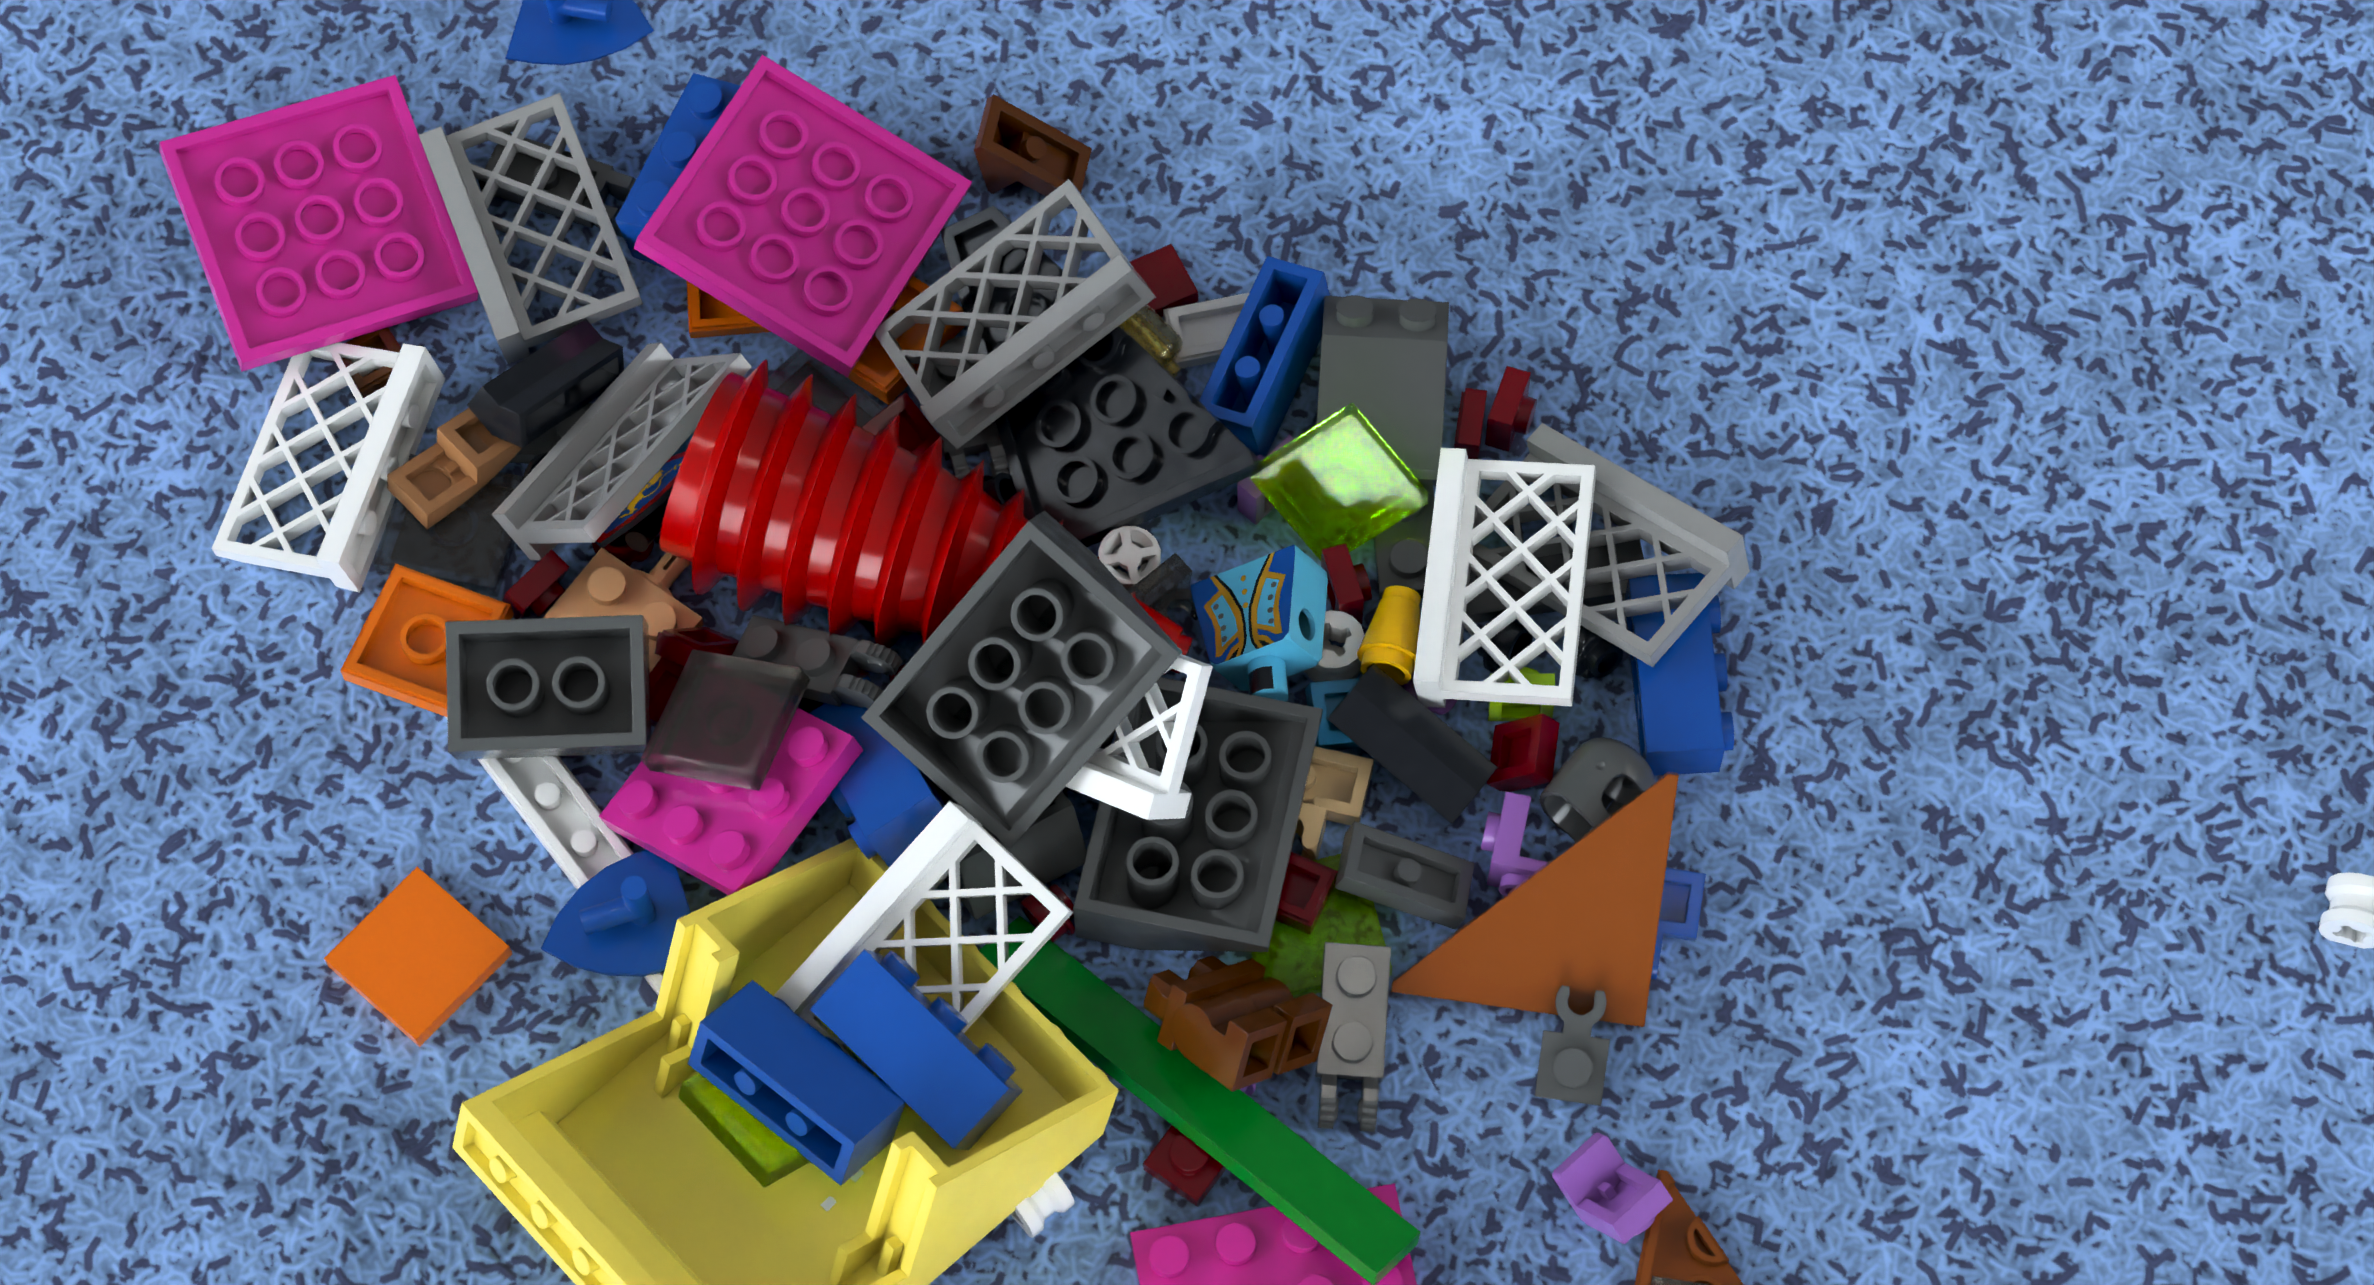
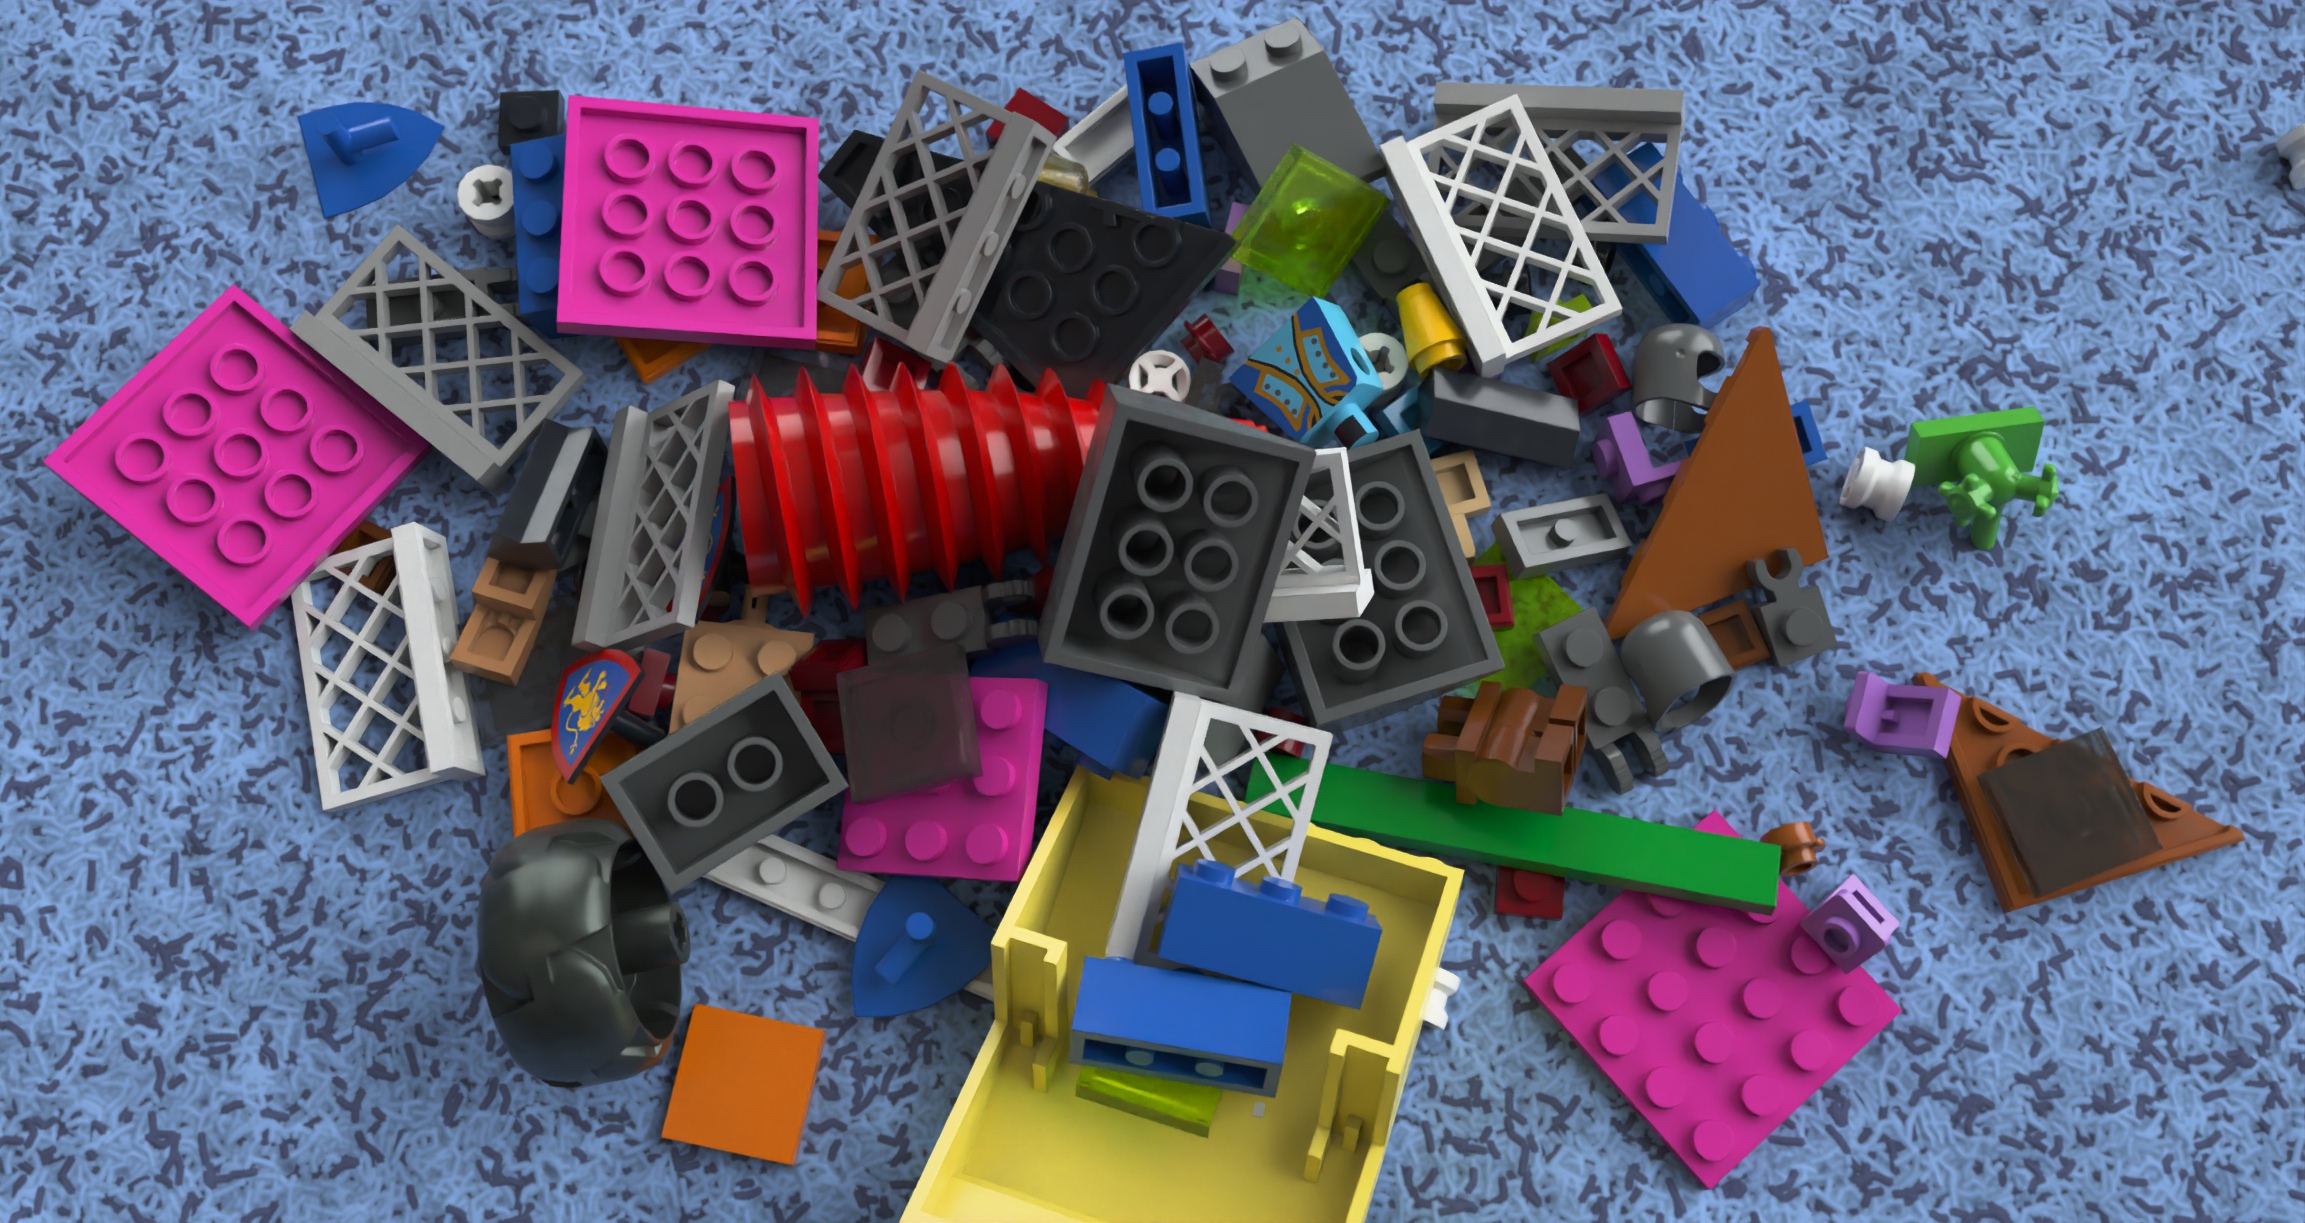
camera: 30 degrees left, 10 degrees up
(348, 758) = (580, 953): none -> pearl dark grey wheel
(479, 570) = (593, 703): none -> shield
(643, 99) = (488, 215): none -> white wheel
(727, 56) = (529, 117): none -> black plate
(1026, 150) = (851, 68): reddish brown slope -> none
(1198, 547) = (1206, 341): none -> dark red plate
(1347, 583) = (1357, 302): dark red plate -> none
(1431, 1019) = (1668, 659): none -> dark grey helmet
(1441, 1252) = (1797, 847): none -> dark orange plate
(1471, 421) = (1374, 112): dark red tile -> none
(1504, 1049) = (1736, 635): none -> reddish brown tile
(1511, 409) = (1394, 84): dark red plate -> none
(1728, 984) = (1877, 484): none -> white wheel
(1834, 1014) = (1988, 456): none -> bright green piece

